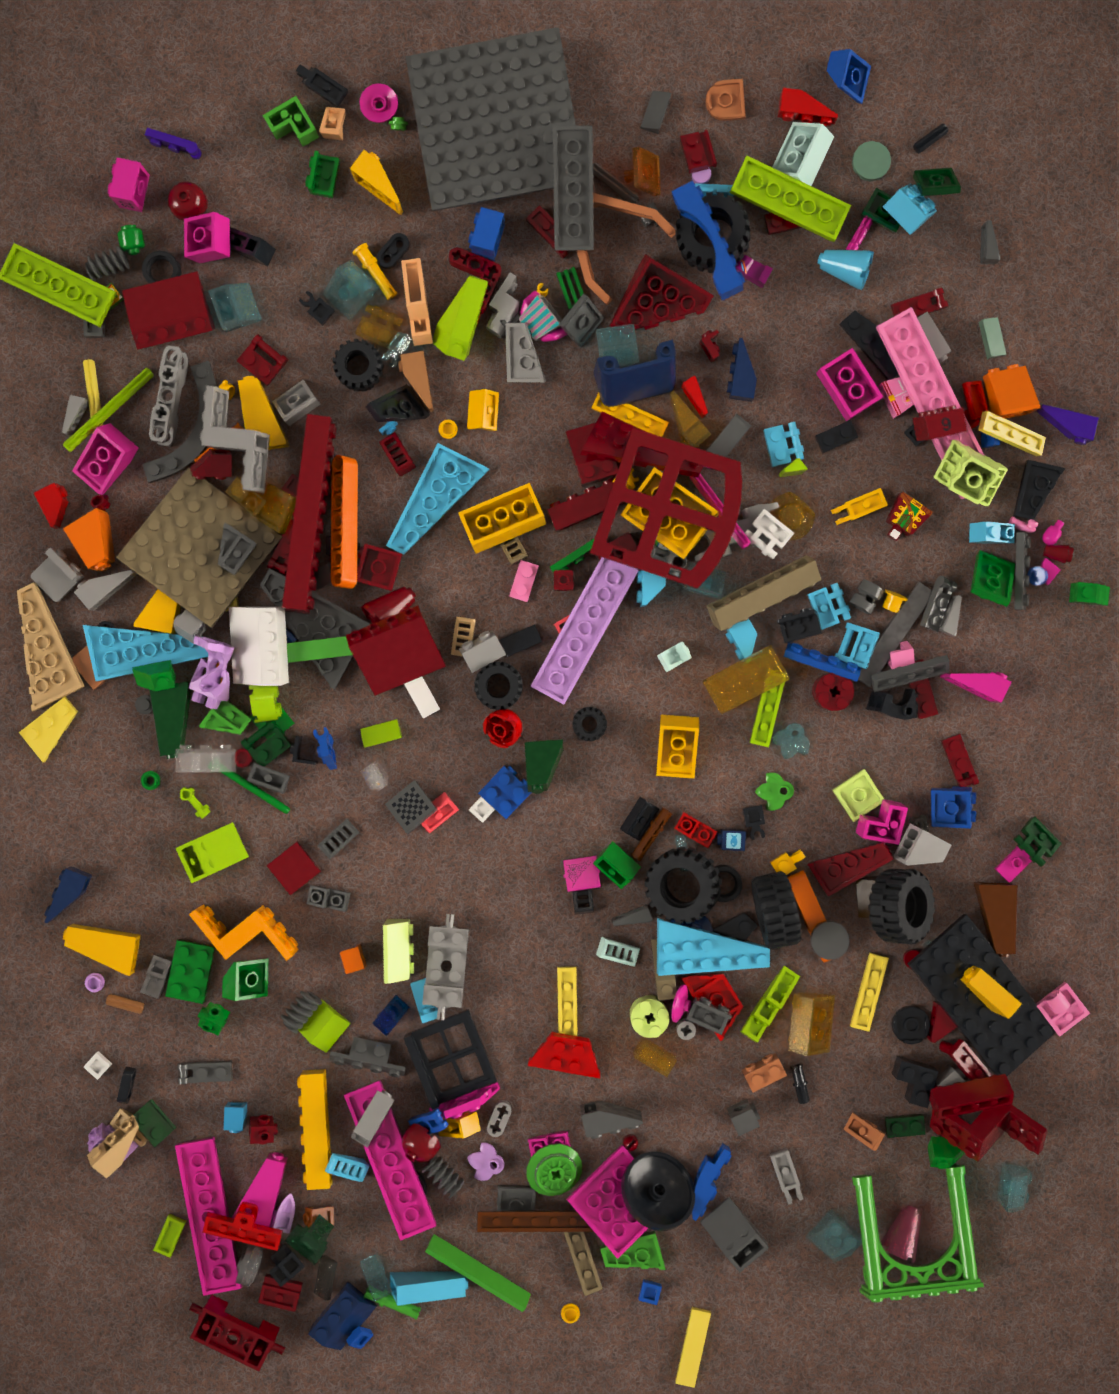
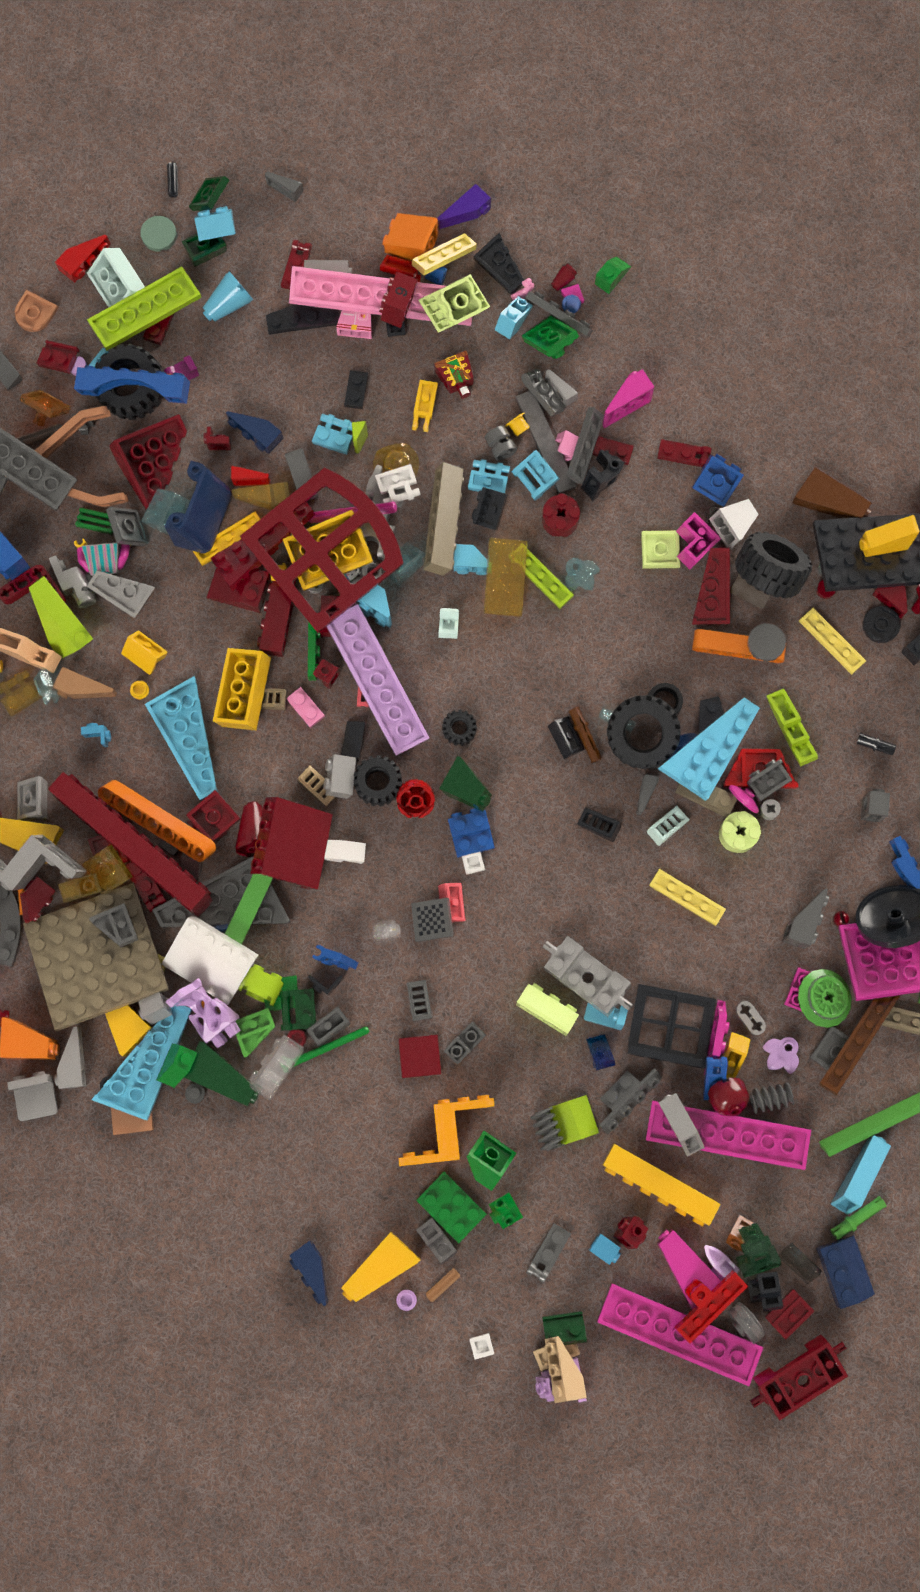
camera: 55 degrees left, 10 degrees down
(46, 655) = (99, 1152): tan wing -> none
(47, 729) = (158, 1192): light yellow wing -> none
(126, 1085) = (515, 1331): black beam -> none
(144, 780) = (256, 1132): green plate -> none
(169, 1235) = (676, 1383): lime tile -> none
(188, 794) = (296, 1106): lime bar -> none
(212, 852) = (360, 1116): lime slope -> none
(353, 349) = (26, 717): black tyre -> none
(353, 959) = (531, 1054): orange panel -> none
(357, 1172) = (720, 1169): medium azure slope -> none
(359, 1337) = (872, 1267): blue plate -> none
(375, 1277) = (827, 1218): clear light blue slope -> none
(380, 733) = (353, 906): lime slope -> none
(397, 406) = (92, 715): black wing -> none
(408, 462) = (144, 744): dark red slope -> none
(544, 225) = (35, 509): dark red plate -> none
(567, 1055) = (729, 924): red wing -> none
(581, 874) = (581, 813): dark pink piece -> none
(619, 866) = (592, 778): green brick -> none
(654, 1056) = (777, 849): clear yellow brick -> none
(677, 746) = (525, 667): yellow slope -> none
(696, 830) = (605, 697): red slope -> none
(731, 839) = (631, 672): brick -> none
(754, 818) = (625, 643): black plate -> none
(764, 1072) = (847, 767): nougat brick -> none
(772, 791) = (612, 615): bright green plate -> none
(776, 910) = (712, 666): black tyre -> none
(786, 863) = (680, 643): yellow plate -> none
(811, 1023) = (829, 703): clear yellow slope -> none
(827, 663) = (536, 503): blue plate -> none
(849, 73) = (78, 207): blue slope -> none
(849, 384) = (321, 352): dark pink brick -> none
(859, 234) = (209, 275): dark pink axle -> none
(992, 338) = (359, 227): sand green slope -> none
(1013, 864) = (795, 460): dark pink plate -> none
(1040, 837) = (788, 427): dark green plate -> none
(1053, 533) = (545, 272): dark pink cylinder -> none

